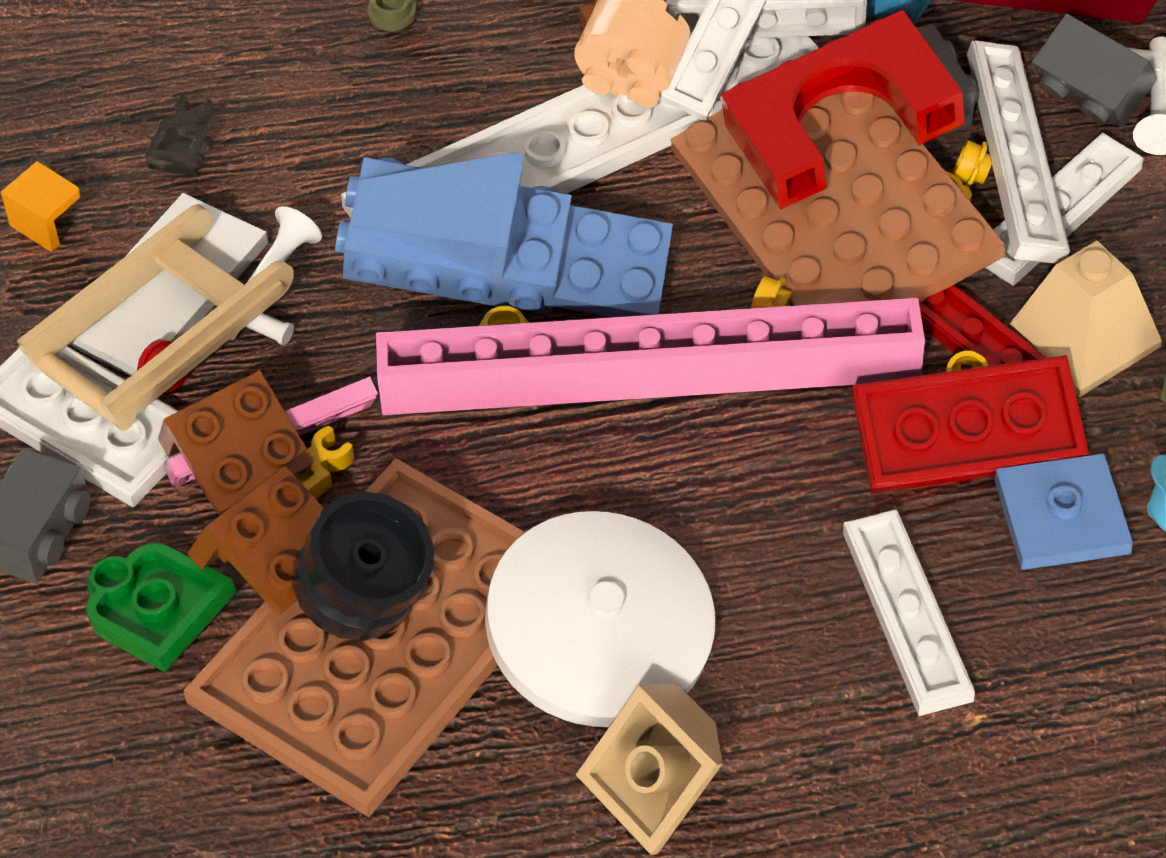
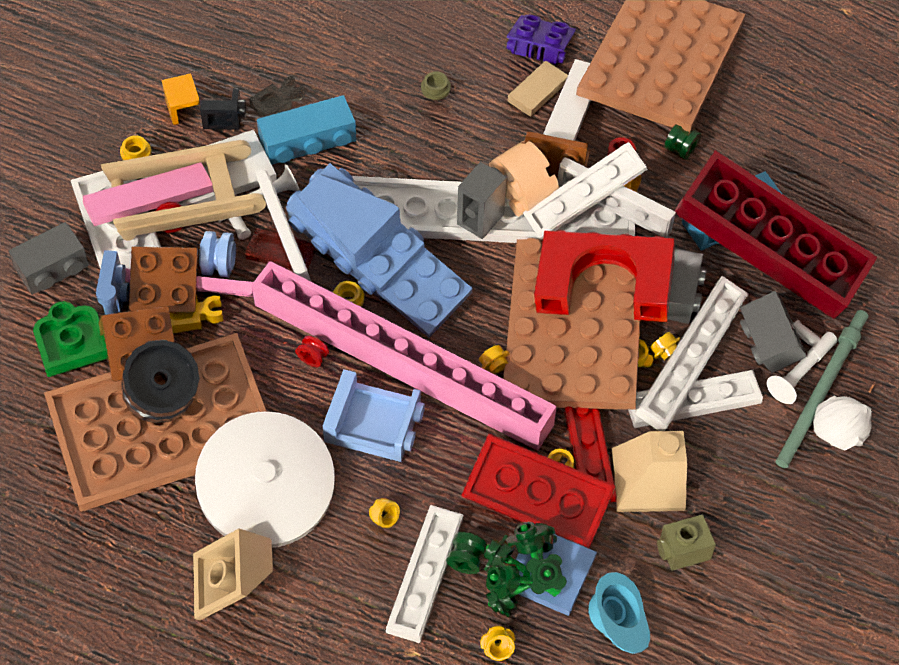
camera: 30 degrees right, 5 degrees up
(28, 307) = (135, 144): none -> yellow plate
(110, 349) = (147, 193): none -> bright pink tile
(121, 194) = (223, 114): none -> black bracket
(172, 494) = (111, 286): none -> medium blue plate
(263, 151) = (307, 130): none -> dark azure brick
(283, 368) = (217, 254): none -> light blue wheel
(341, 281) = (281, 224): none -> white tile
(353, 326) = (267, 247): none -> clear red tile
(518, 425) = (312, 351): none -> red bush
(602, 102) = (481, 200): none -> dark grey brick
(677, 461) = (372, 418): none -> light blue panel
(791, 567) = (389, 507): none -> yellow hinge
(945, 550) = (466, 553): none -> dark green wheel
(1043, 536) = (538, 574): none -> dark green plant
(1080, 634) = (502, 649): none -> yellow plate

